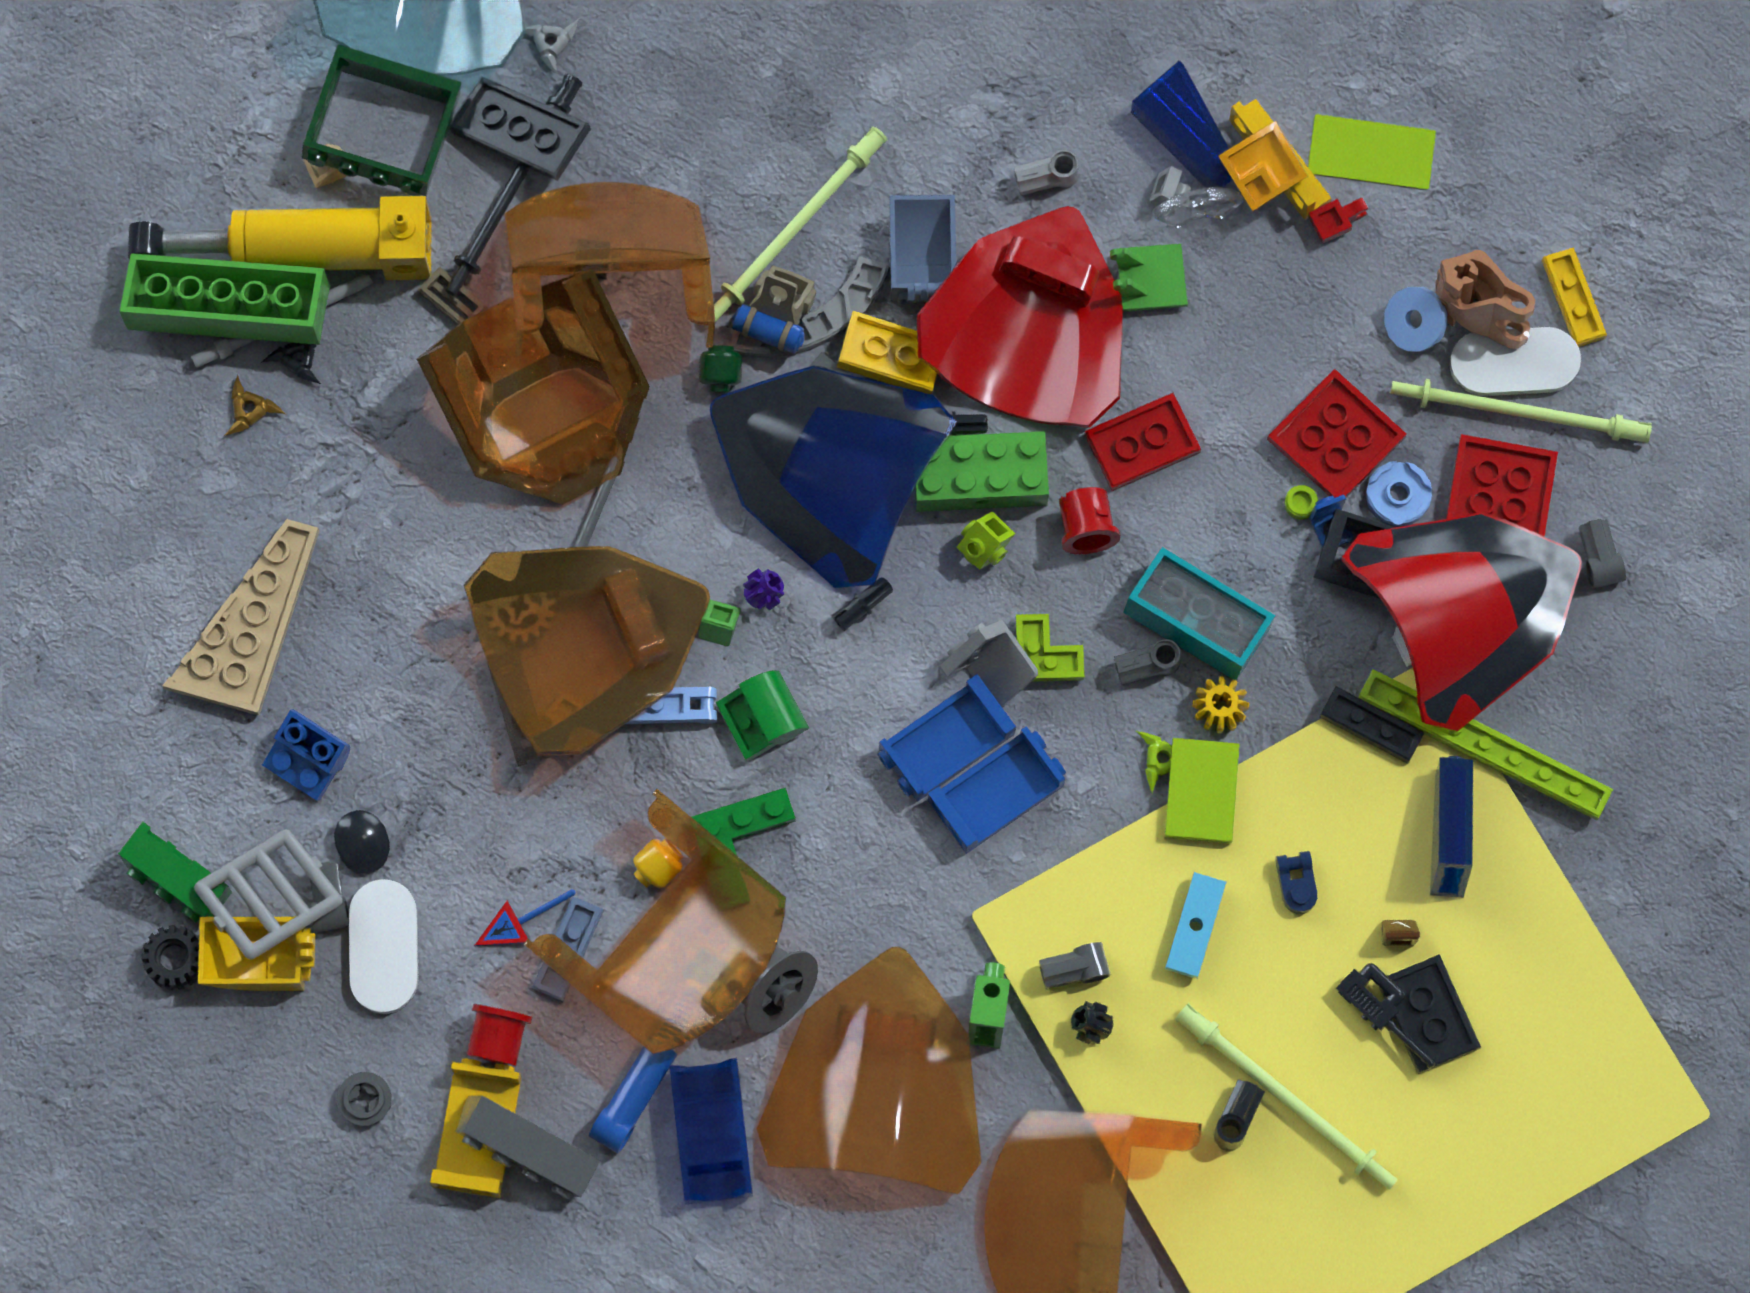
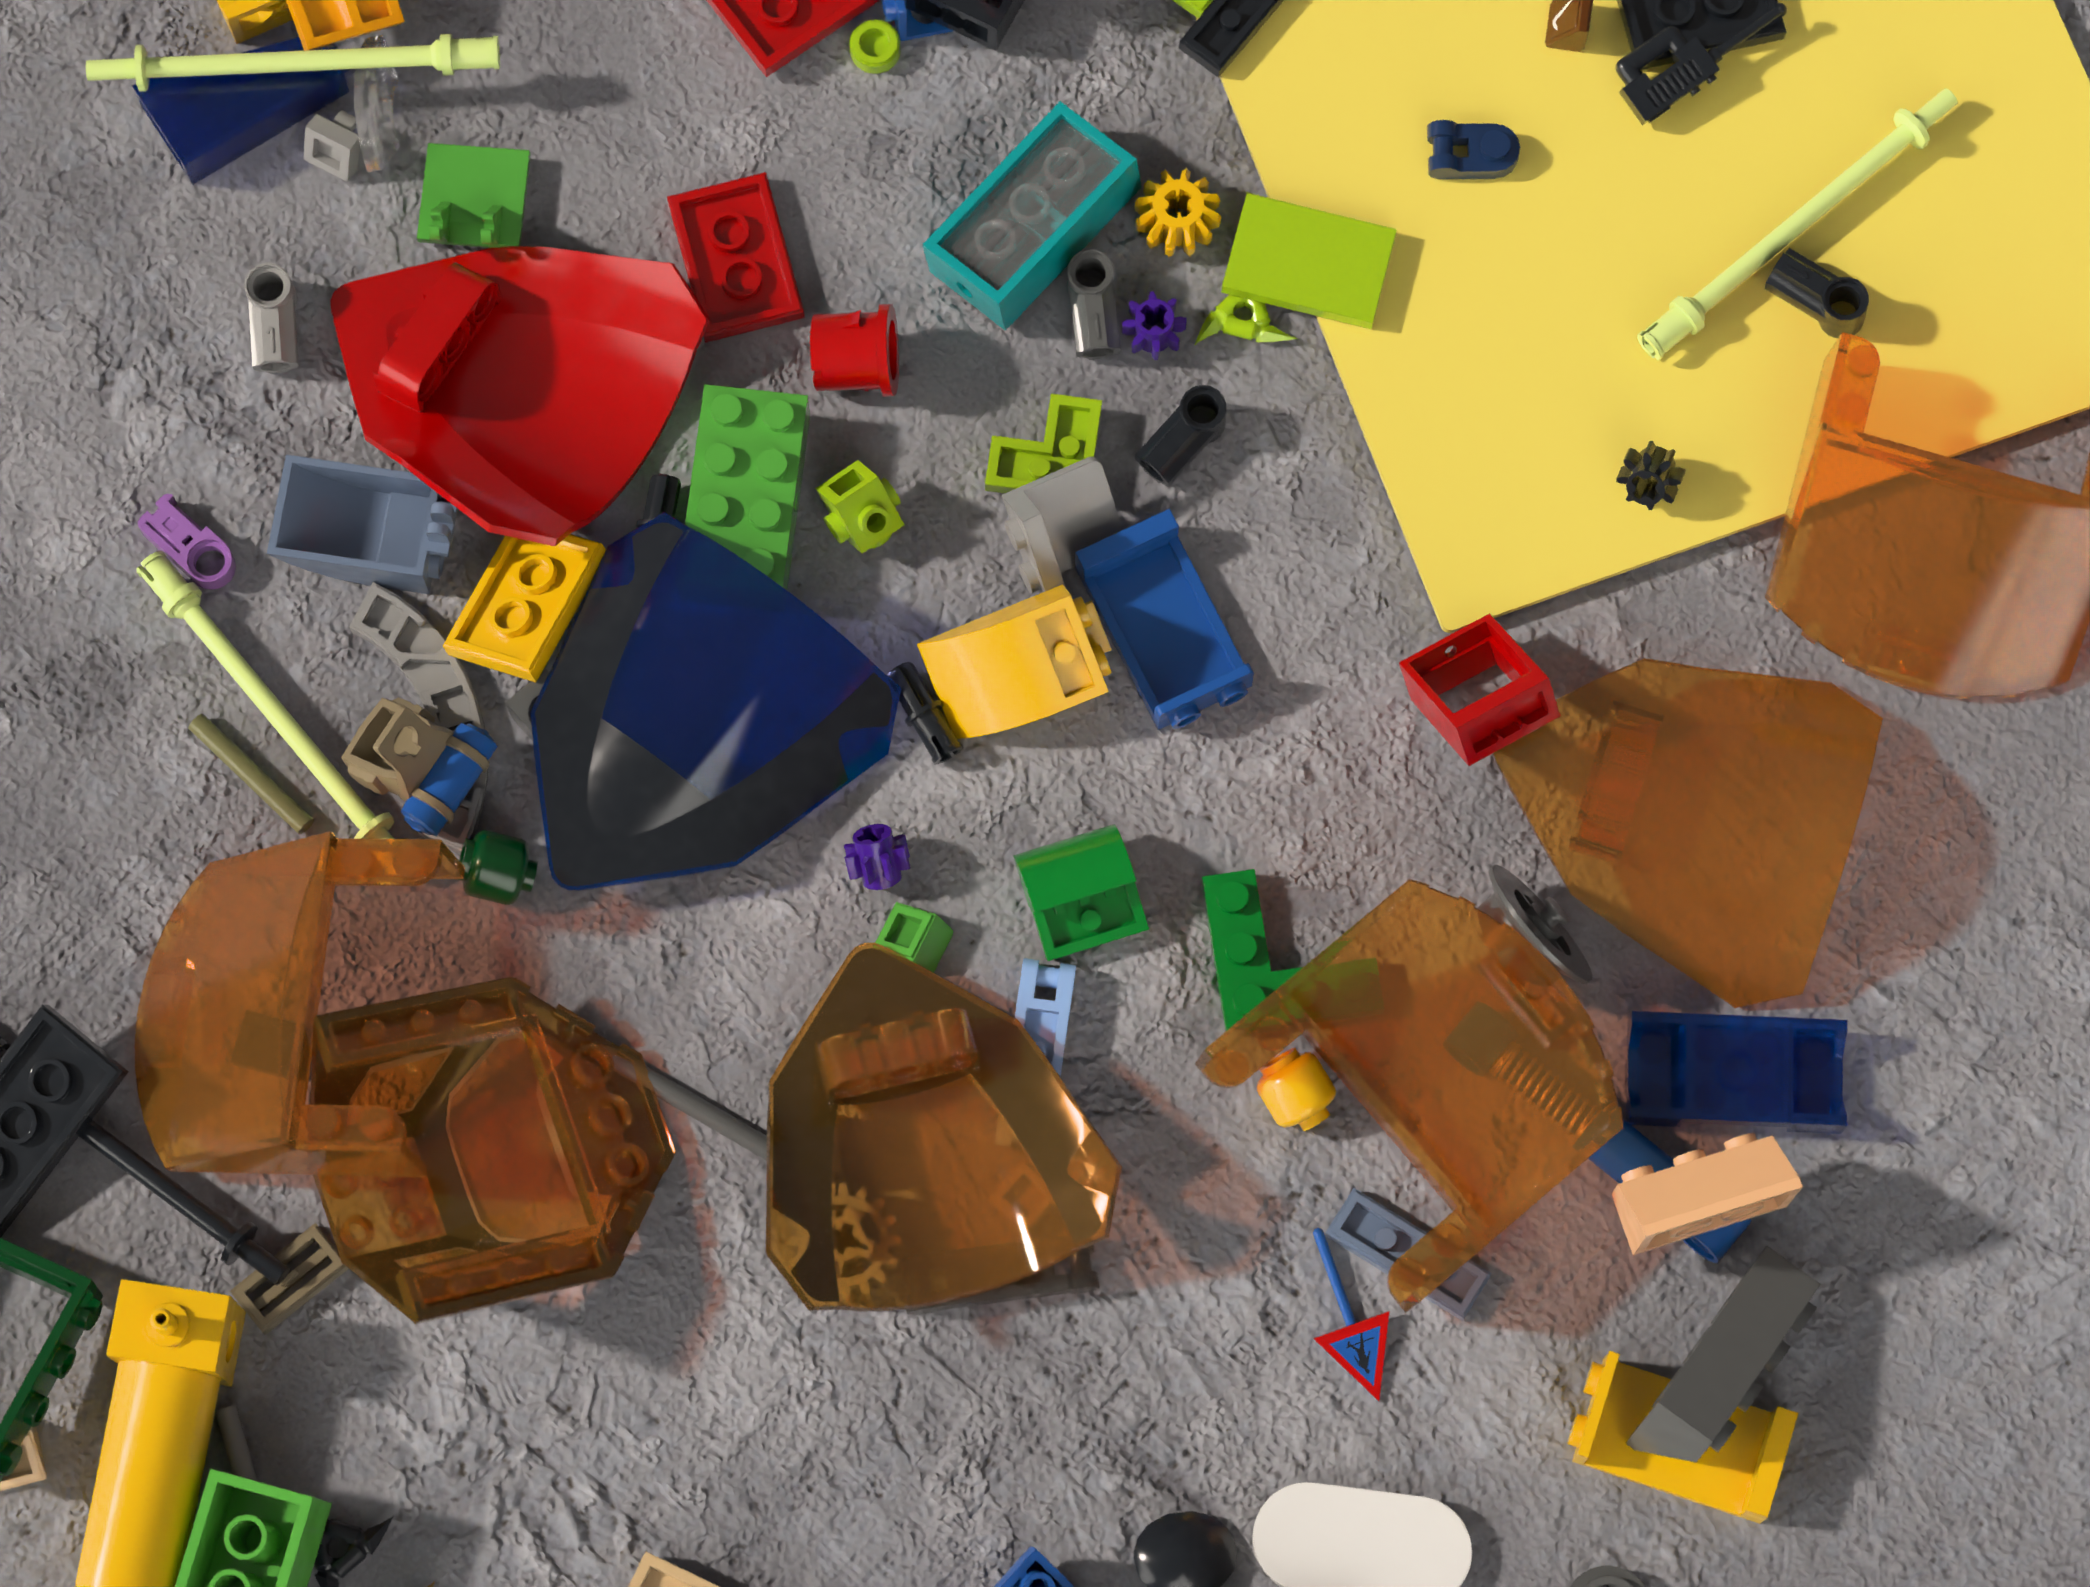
camera: 80 degrees left, 0 degrees up
(497, 1034) = (1540, 1378): red piece -> none
(622, 1109) = (1704, 1192): none -> light nougat slope
(757, 218) = (251, 774): none -> olive bar
(897, 151) = (185, 541): none -> medium lavender piece
(901, 654) = (1018, 663): none -> yellow piece
(910, 946) = (1497, 717): none -> red window
(989, 1007) = (1600, 622): bright green torso -> none
(998, 790) = (1255, 560): blue panel -> none
(1068, 730) = (1182, 438): none -> black piece
(1084, 964) = (1557, 474): dark grey piece -> none
(1136, 694) = (1152, 312): none -> dark purple gear
(1200, 907) = (1491, 288): medium azure tile -> none
(1231, 237) = (444, 55): none -> yellowish green bar

